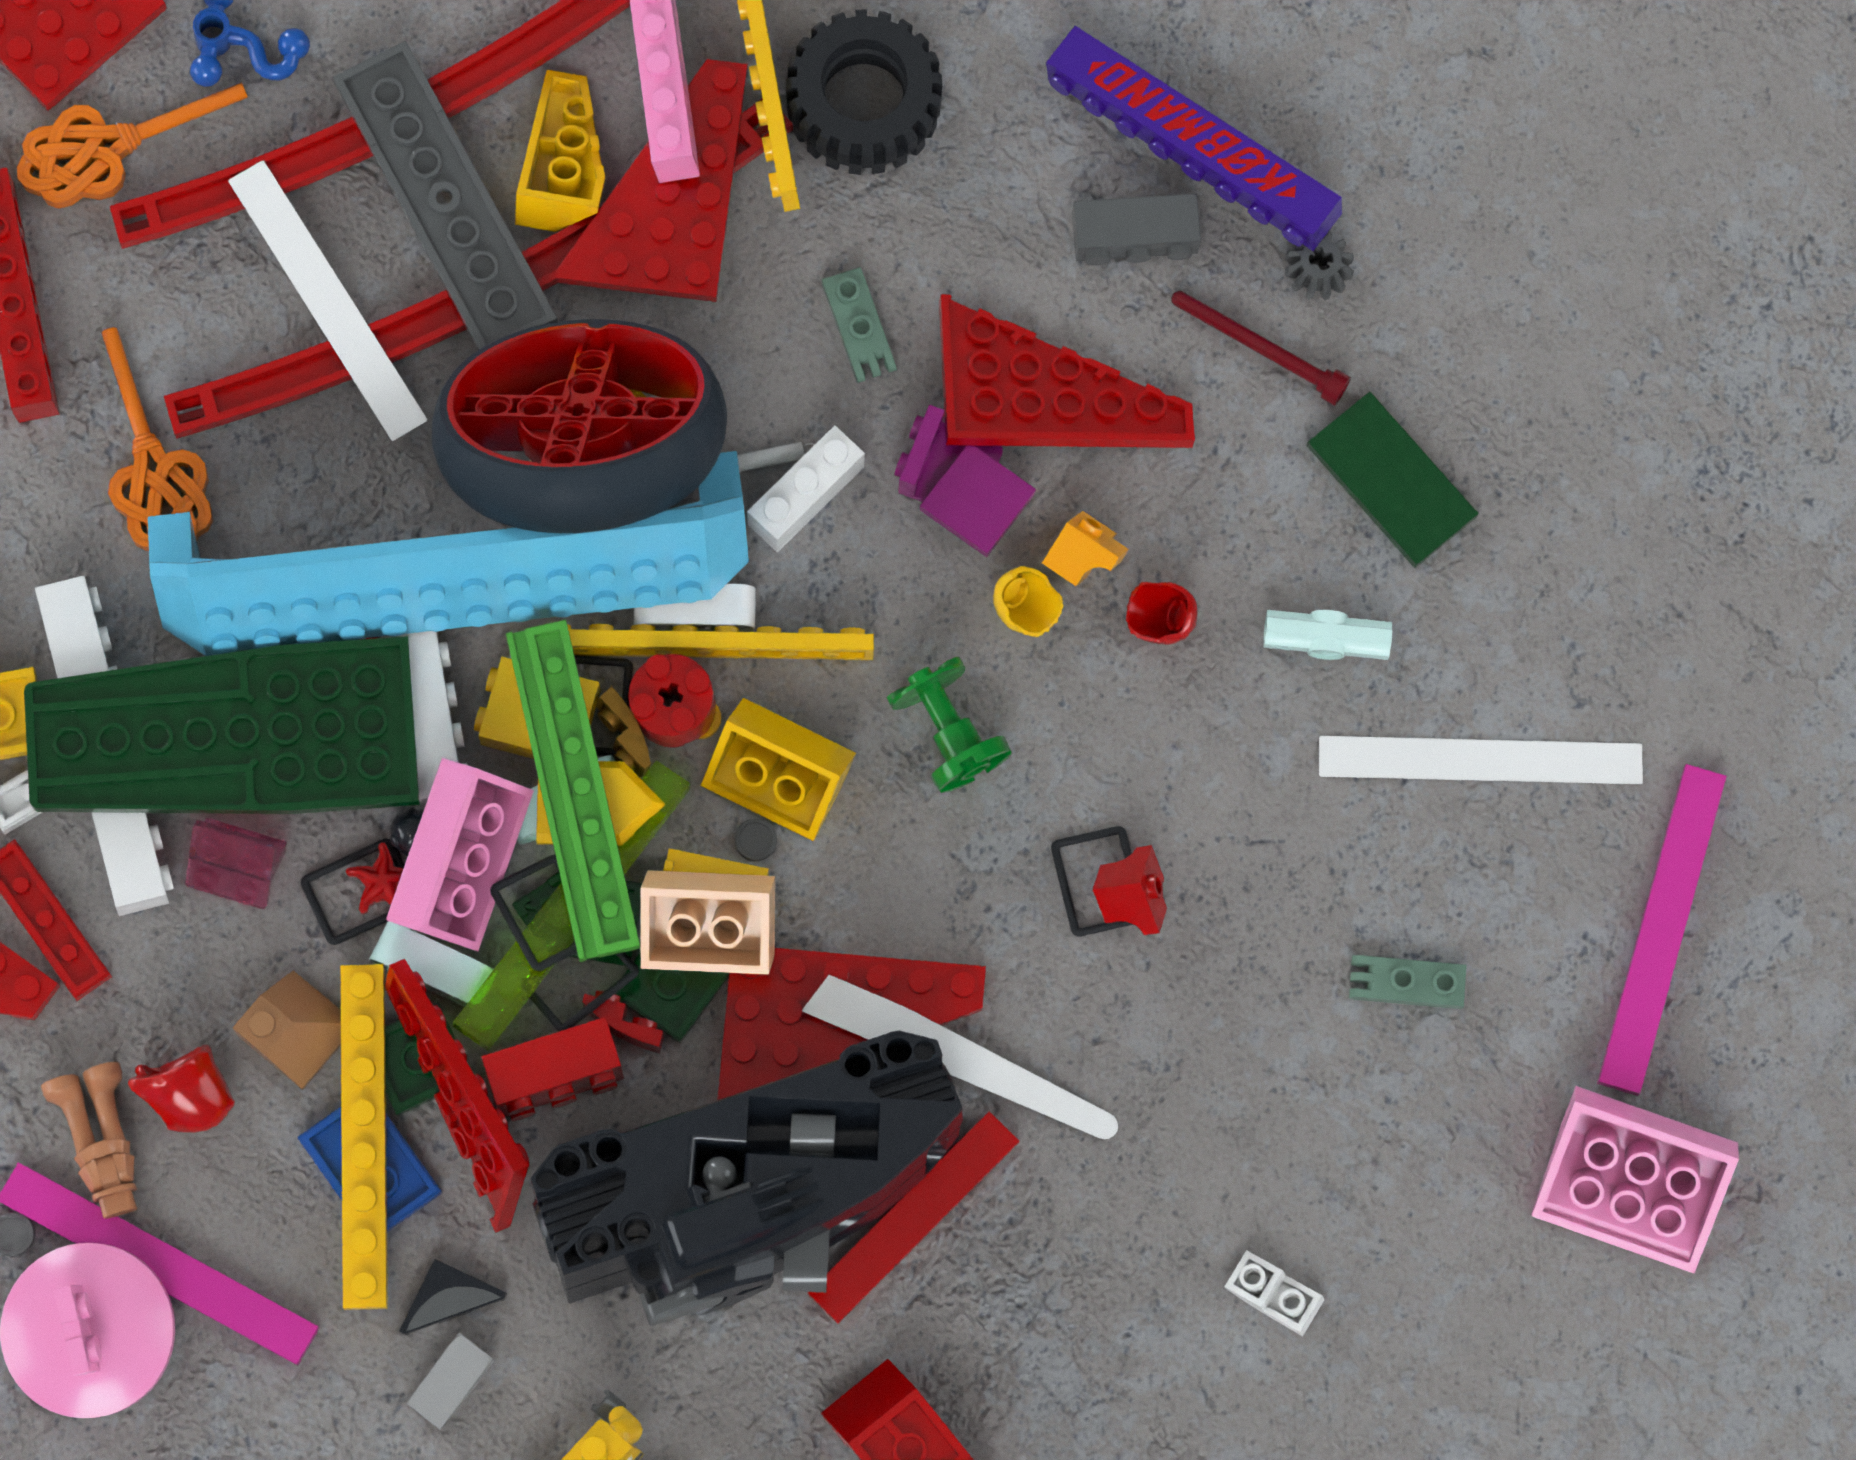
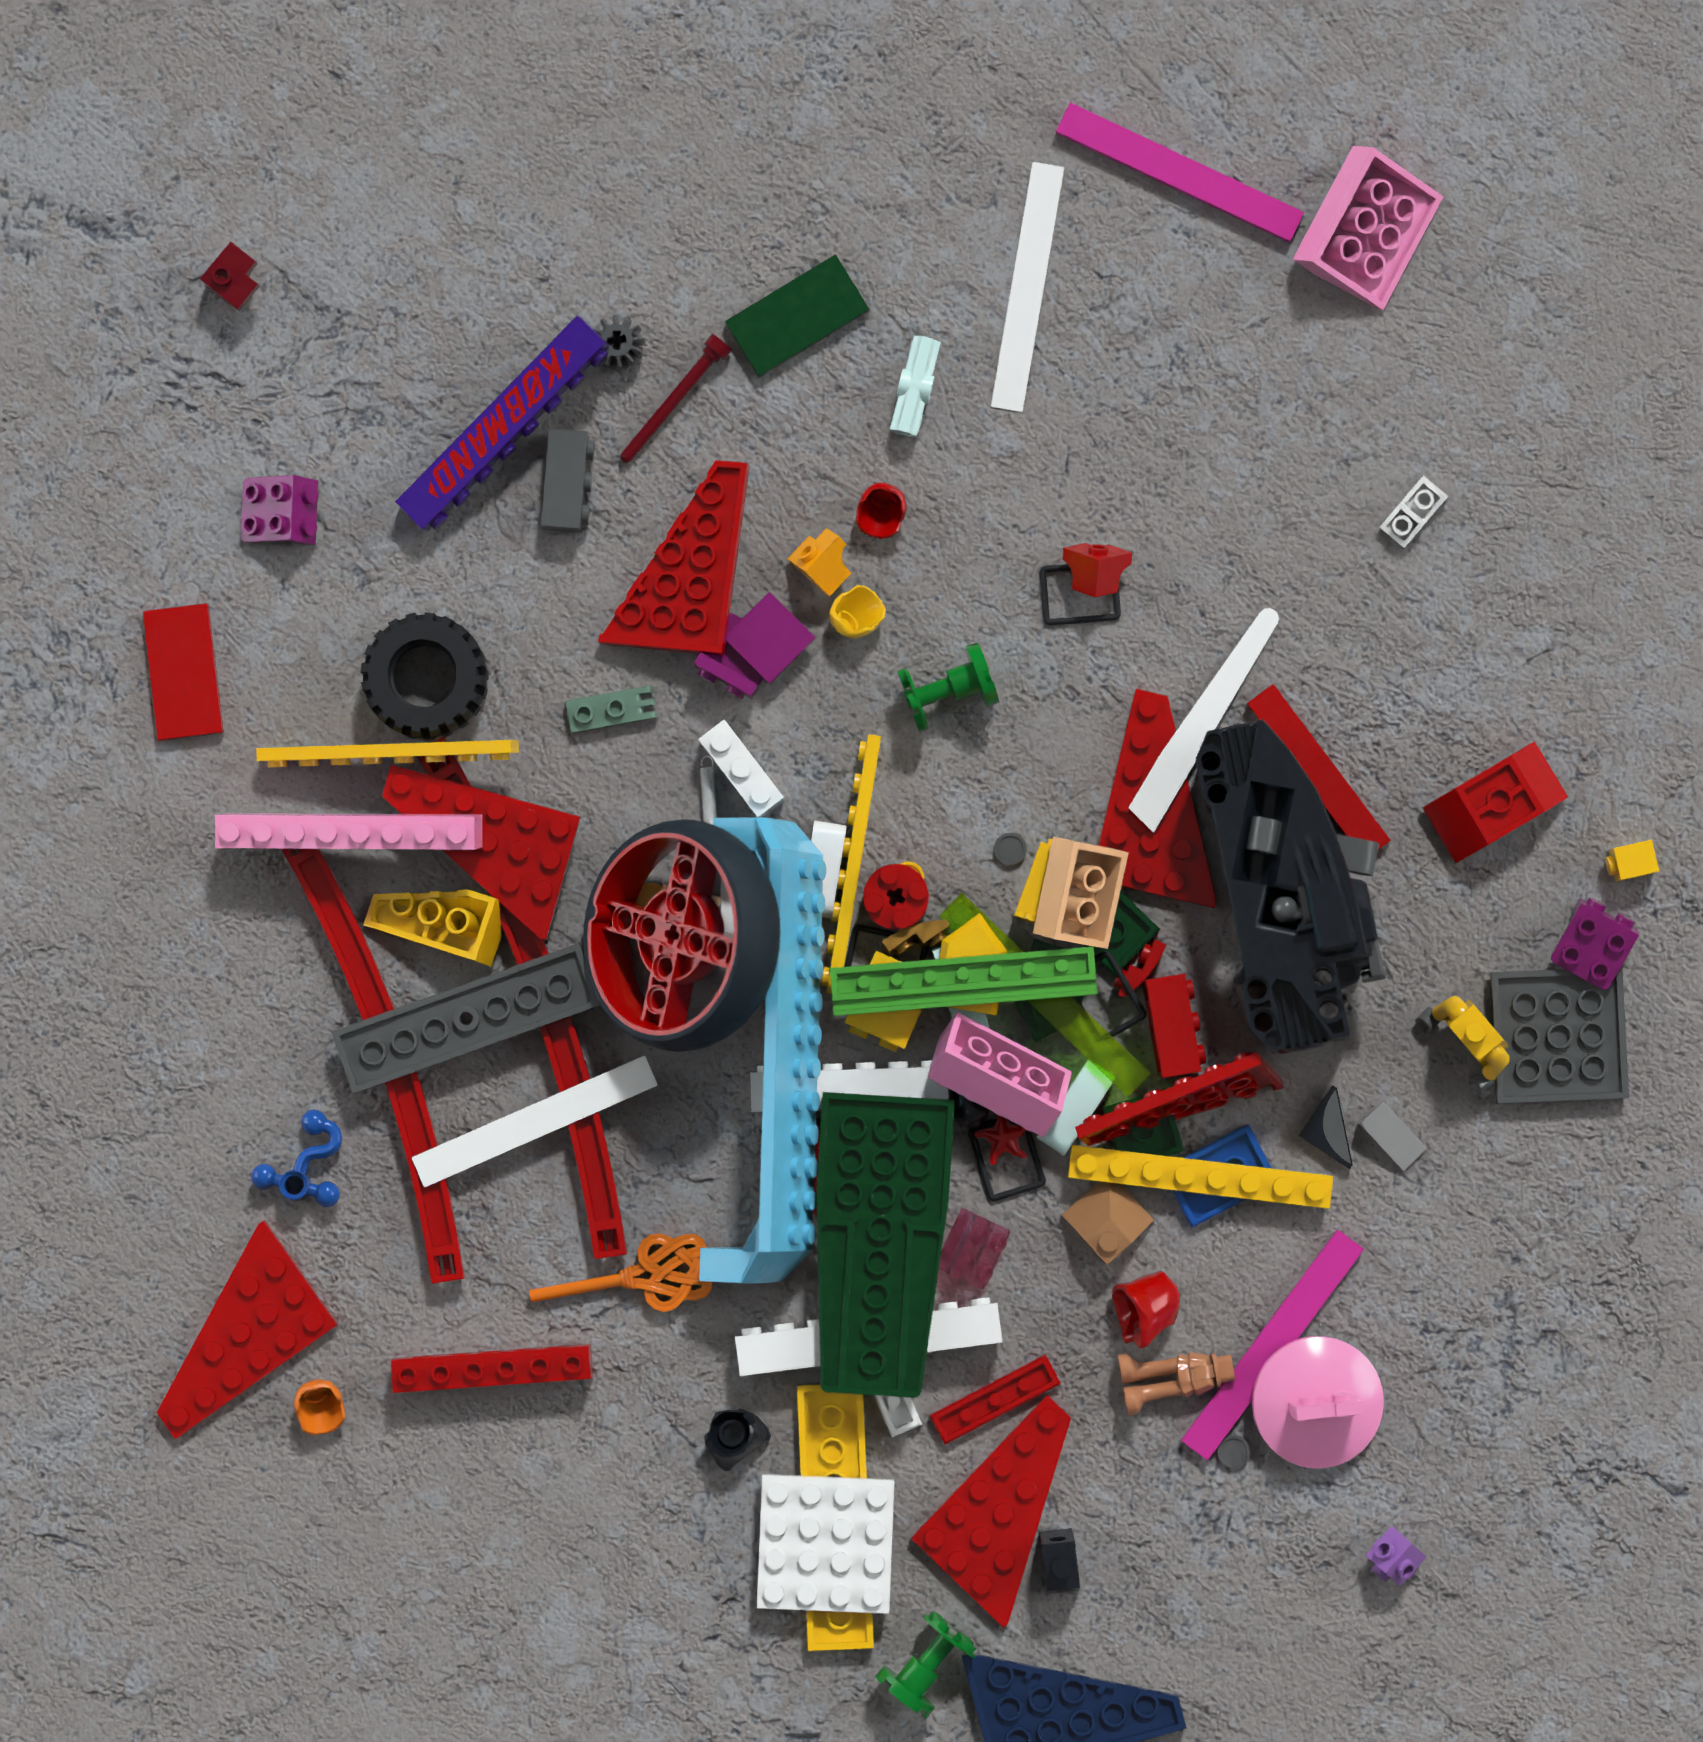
camera: 70 degrees left, 10 degrees up
(86, 144) = (378, 1329): orange piece -> none
(494, 890) = (1057, 1042): black piece -> none
(777, 768) = (960, 823): yellow slope -> none
(1409, 982) = (1193, 369): sand green hinge -> none

